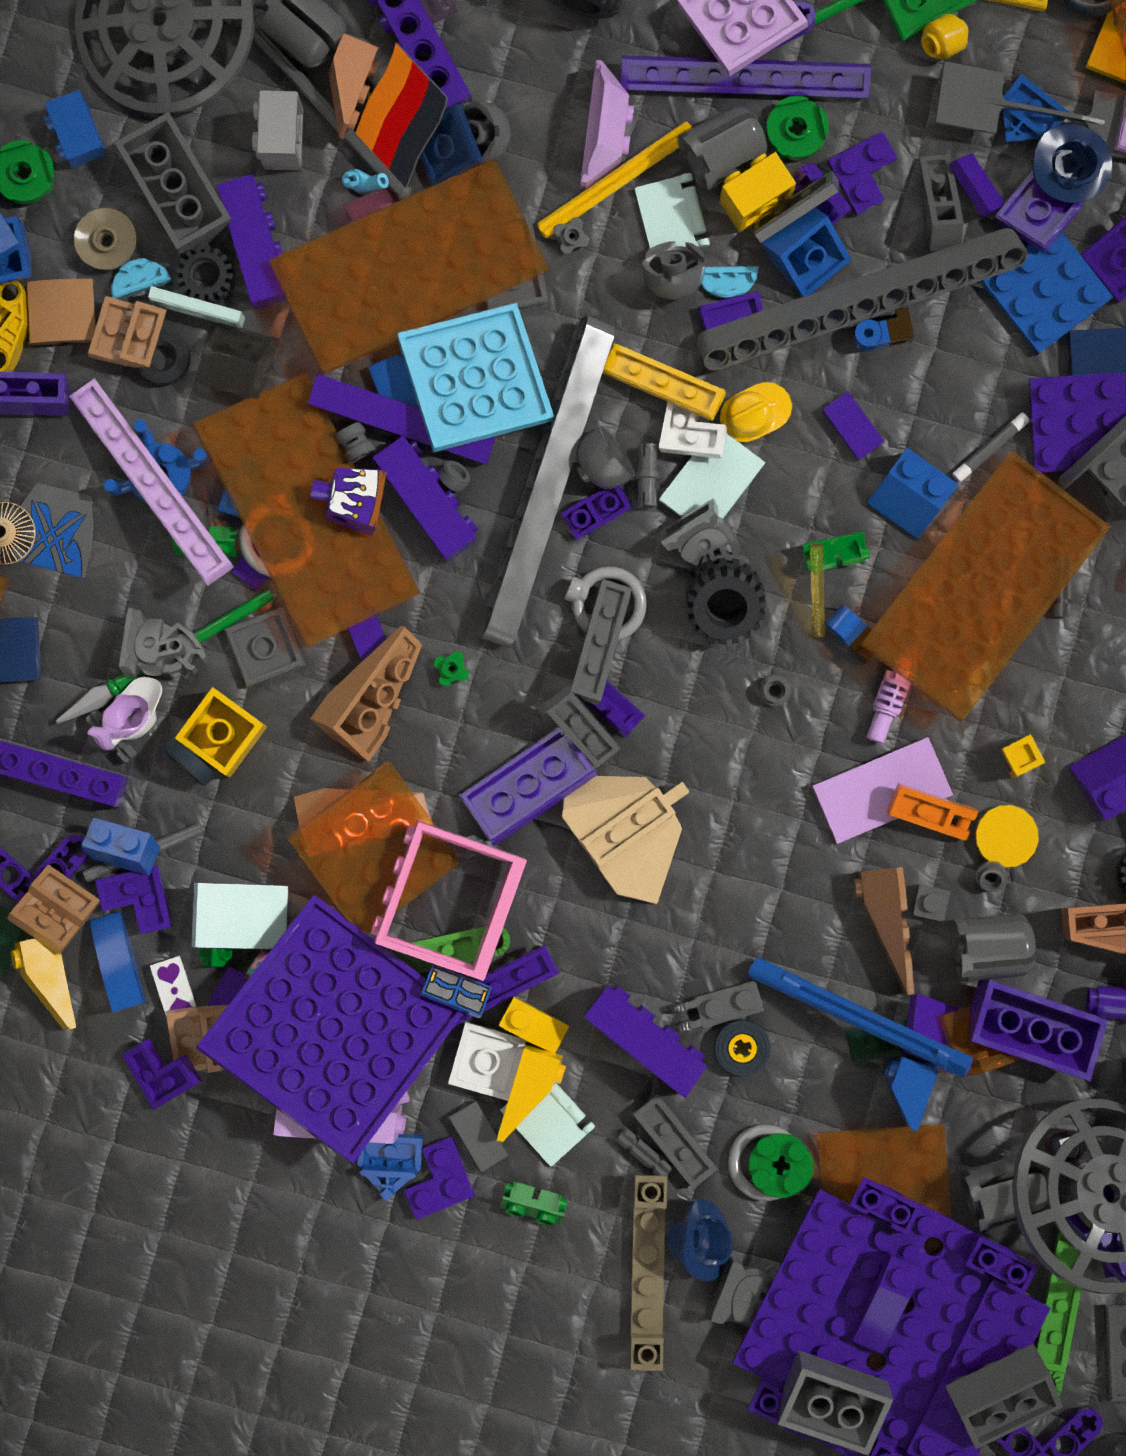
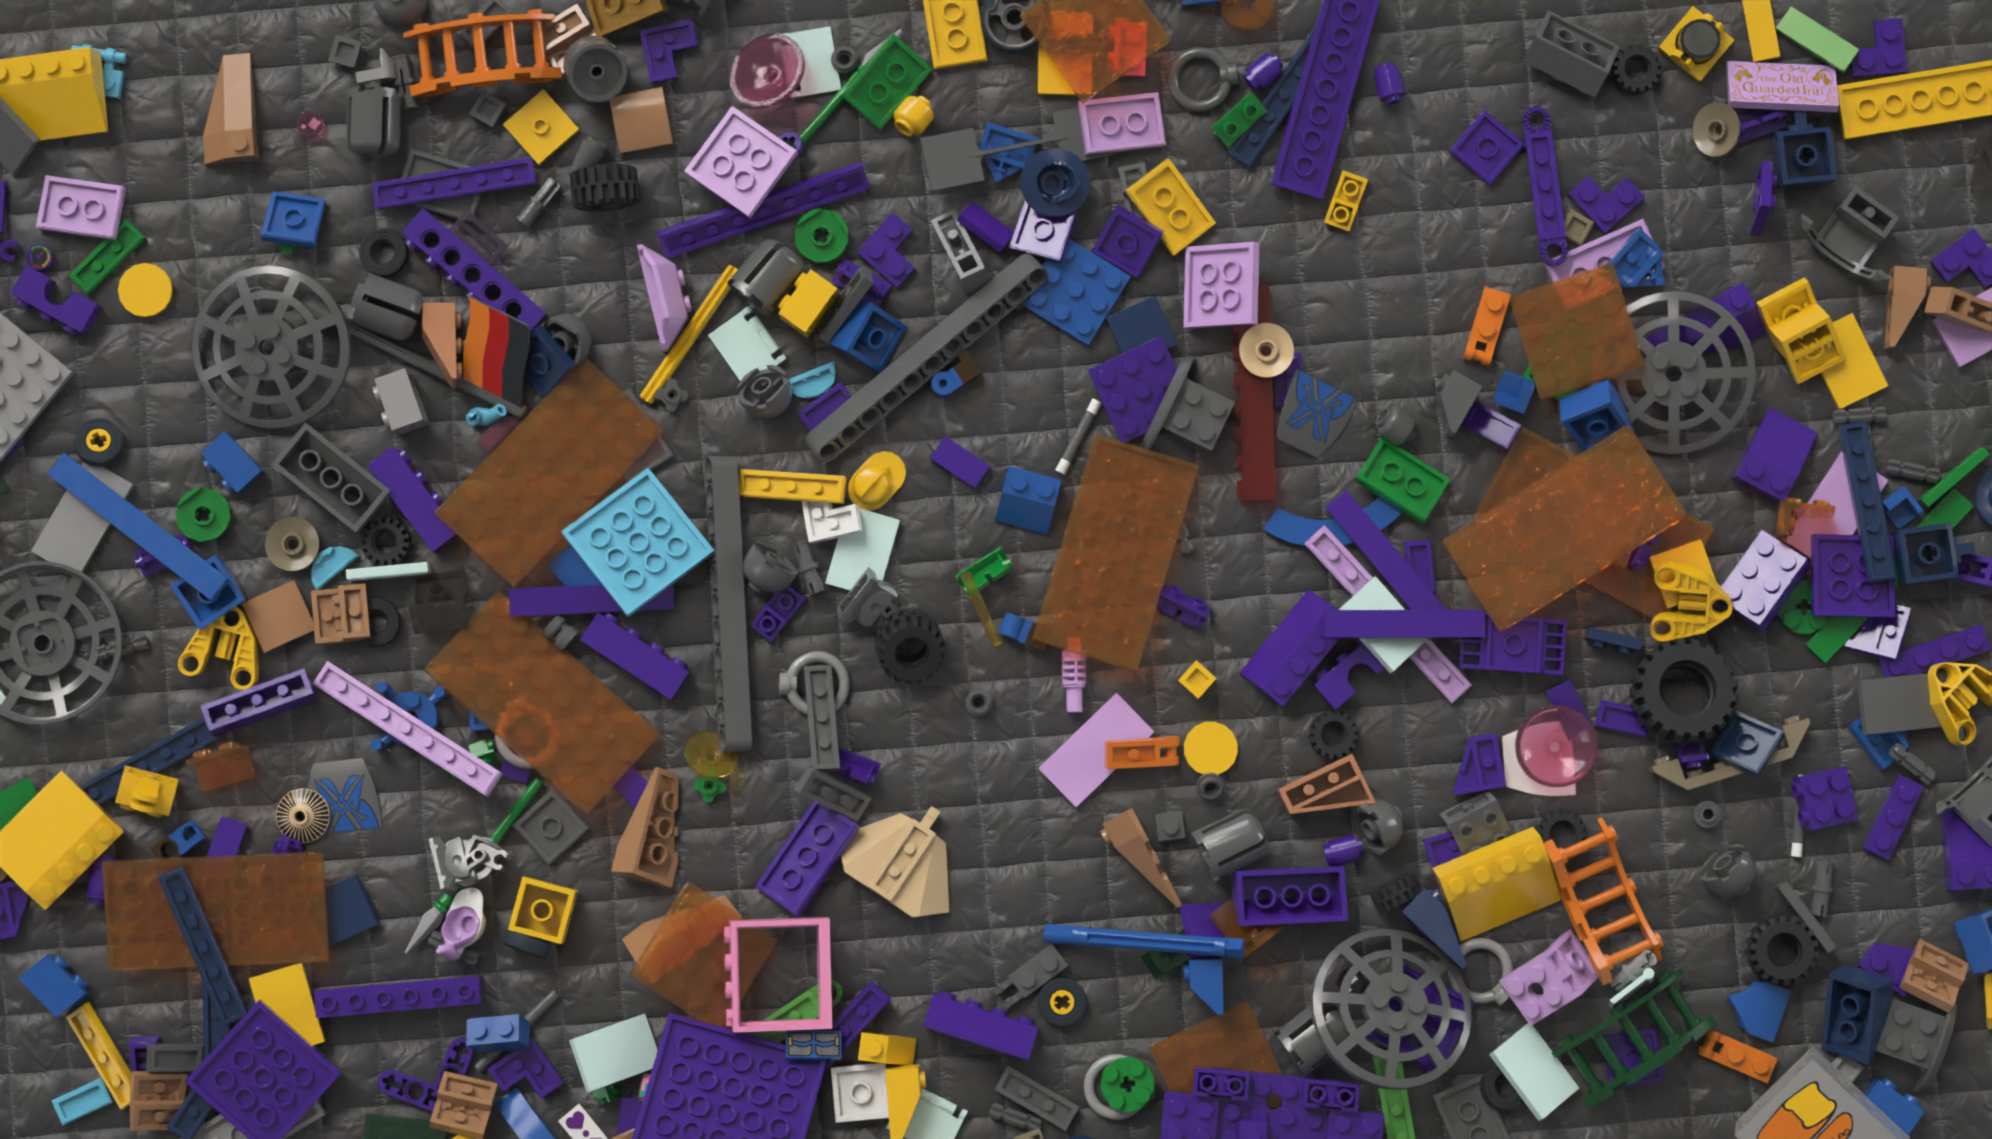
camera: 20 degrees left, 0 degrees up
(352, 497) = (576, 679): torso -> none
(454, 476) = (651, 628): dark grey tile -> none
(463, 623) = (704, 746): none -> clear yellow dish
(1043, 679) = (1193, 609): none -> dark purple hinge

